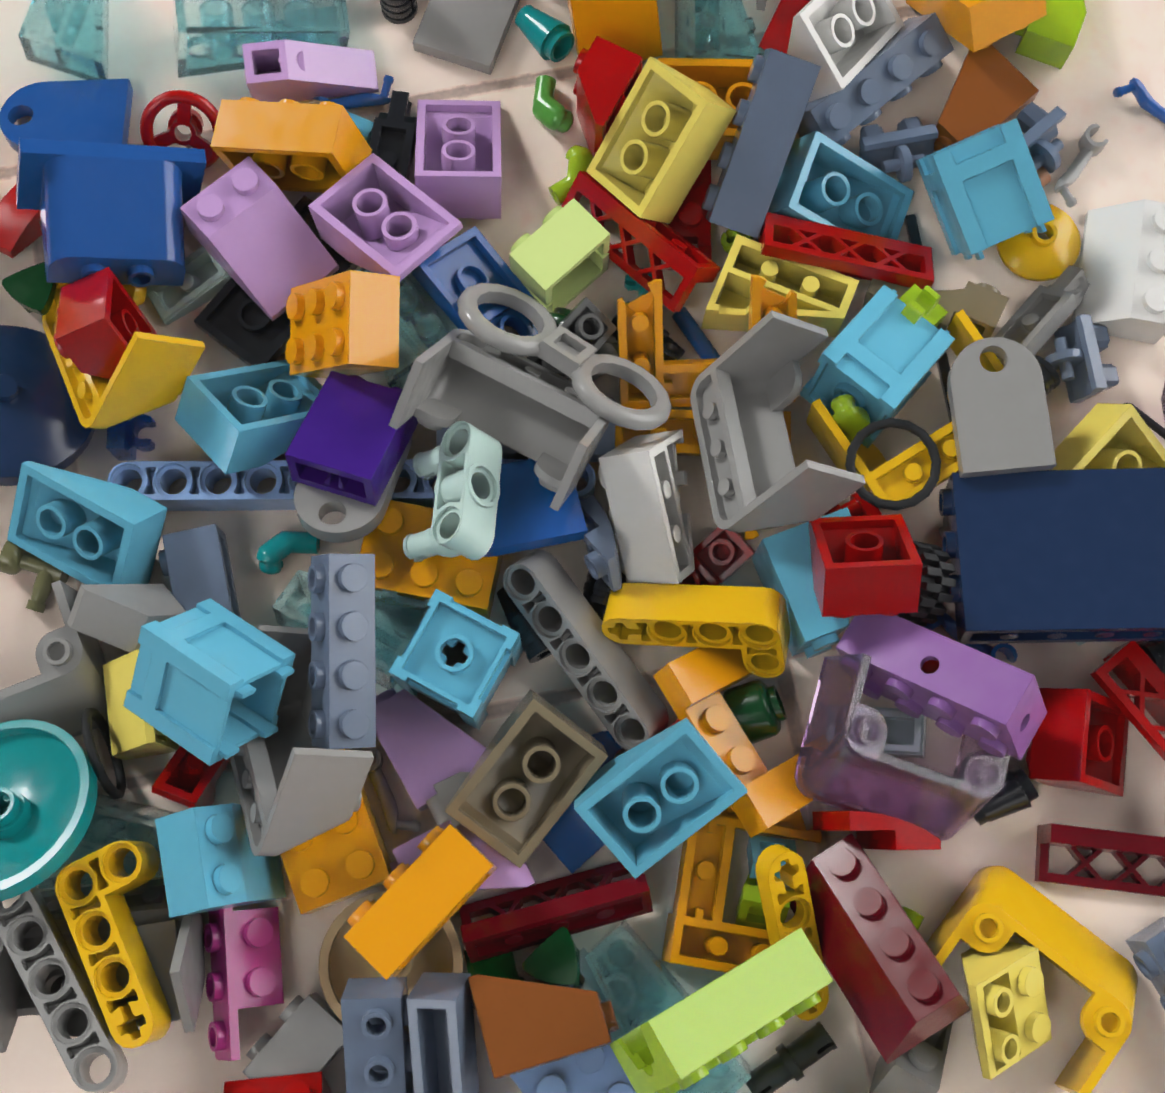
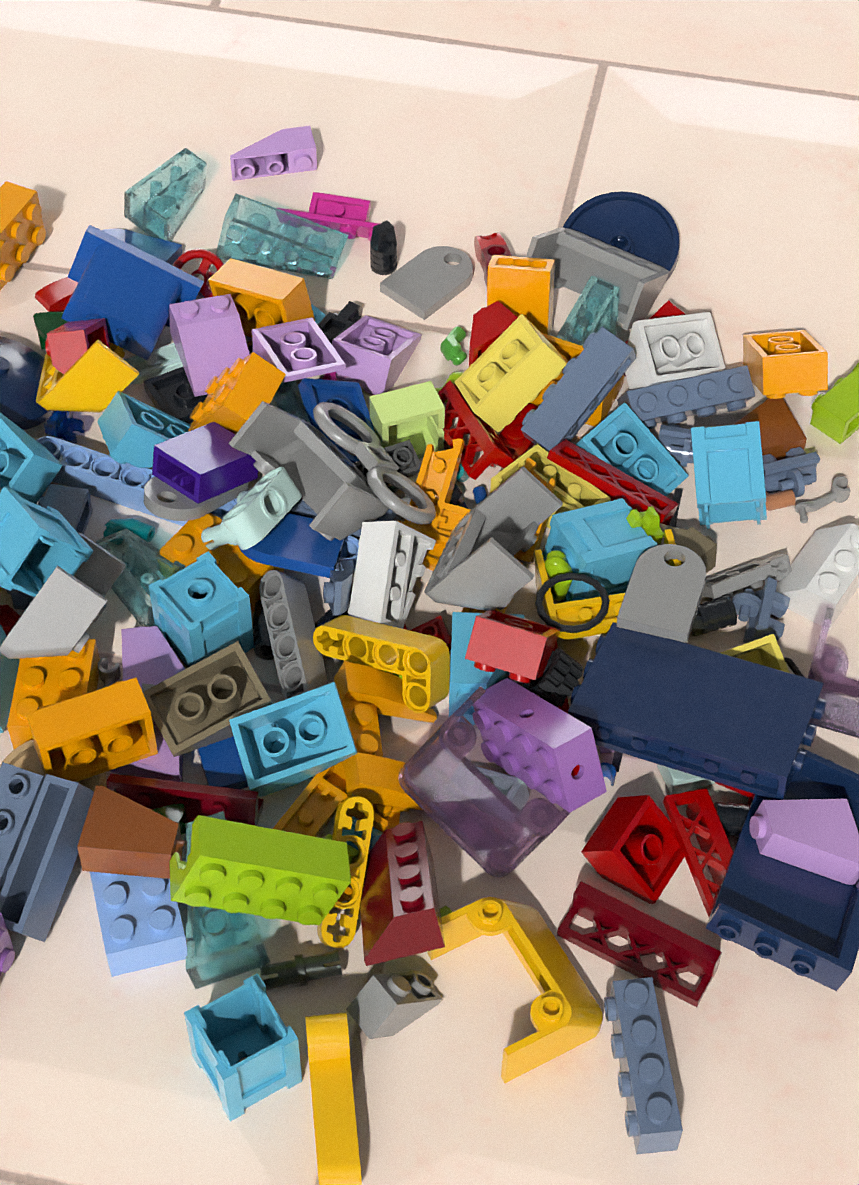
camera: 25 degrees right, 25 degrees down
(307, 70) = (320, 279): lavender slope -> none
(342, 651) = (129, 563): sand blue brick -> none
(364, 99) = (331, 305): blue piece -> none
(546, 34) = (469, 302): teal cone -> none
(756, 709) = (400, 735): dark green head -> none
(877, 830) = (445, 827): red slope -> none
(1006, 1005) = (477, 973): light yellow slope -> none
(1012, 798) = (557, 862): black cone -> none
(1039, 258) = (772, 537): yellow dish -> none

